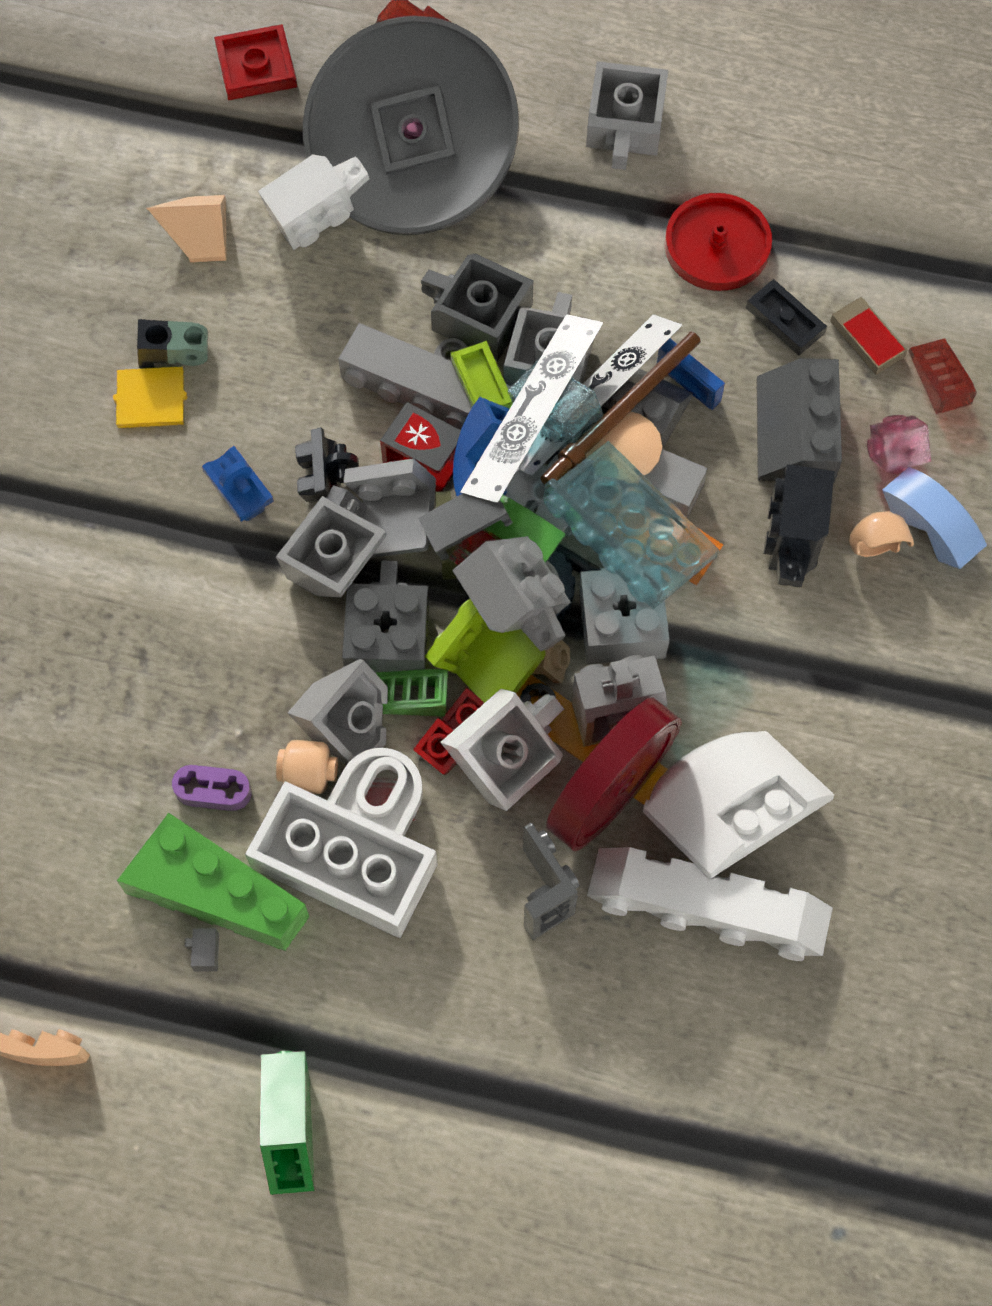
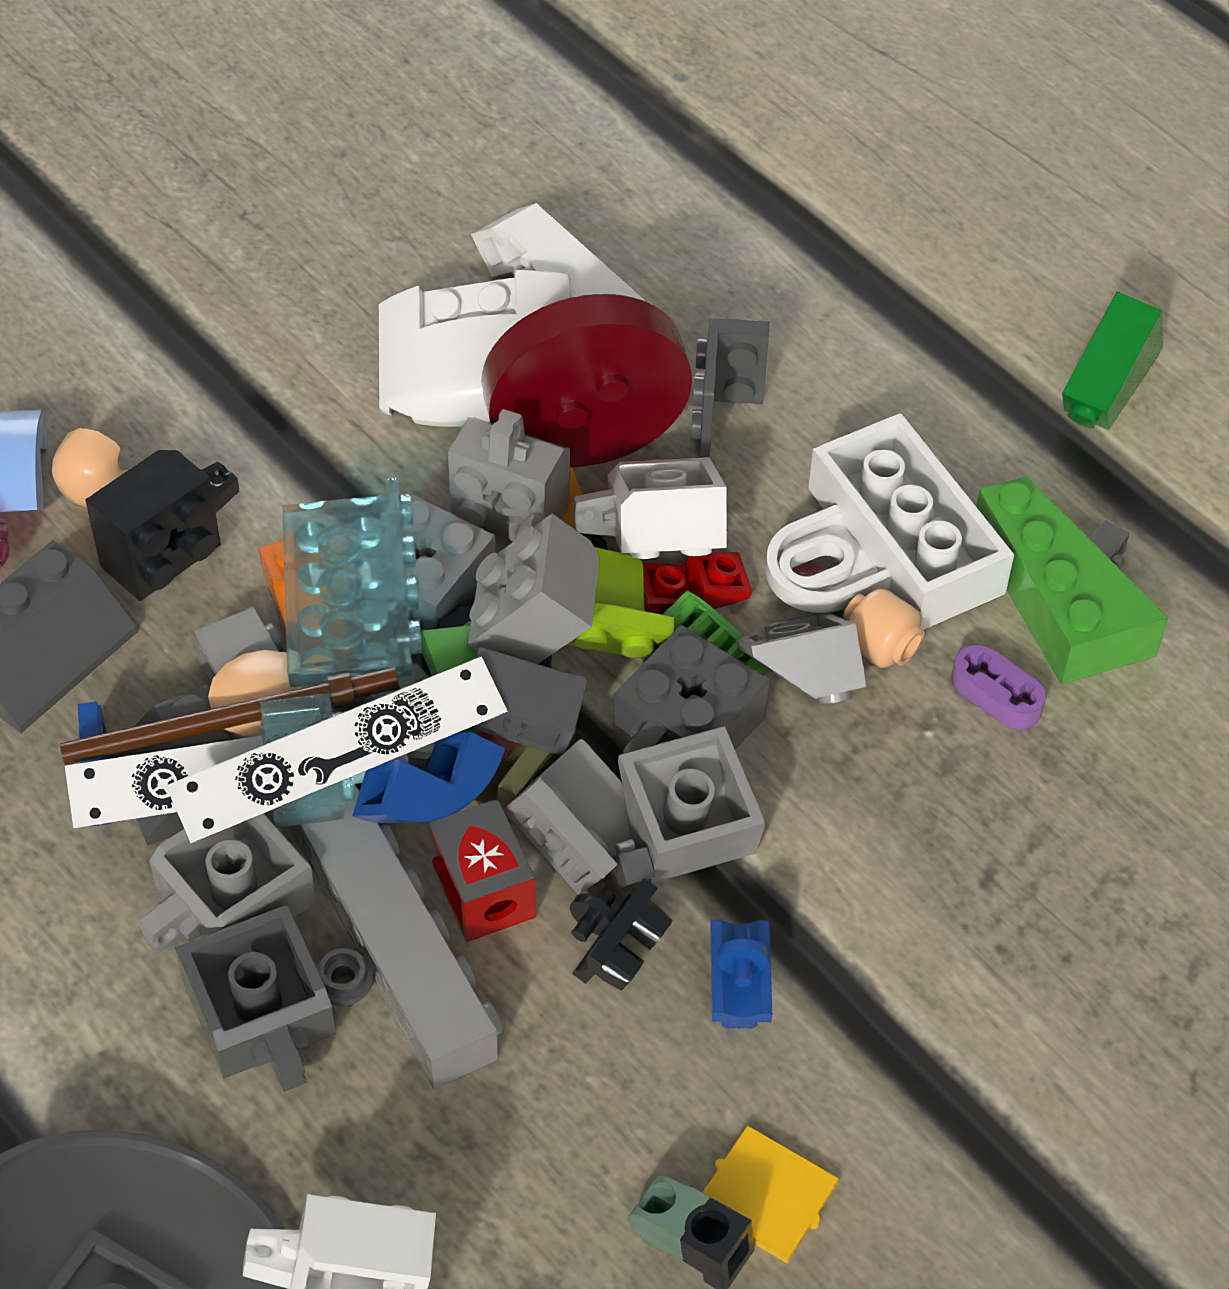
camera: 145 degrees left, 15 degrees down
(480, 375) = (349, 876): lime tile -> none

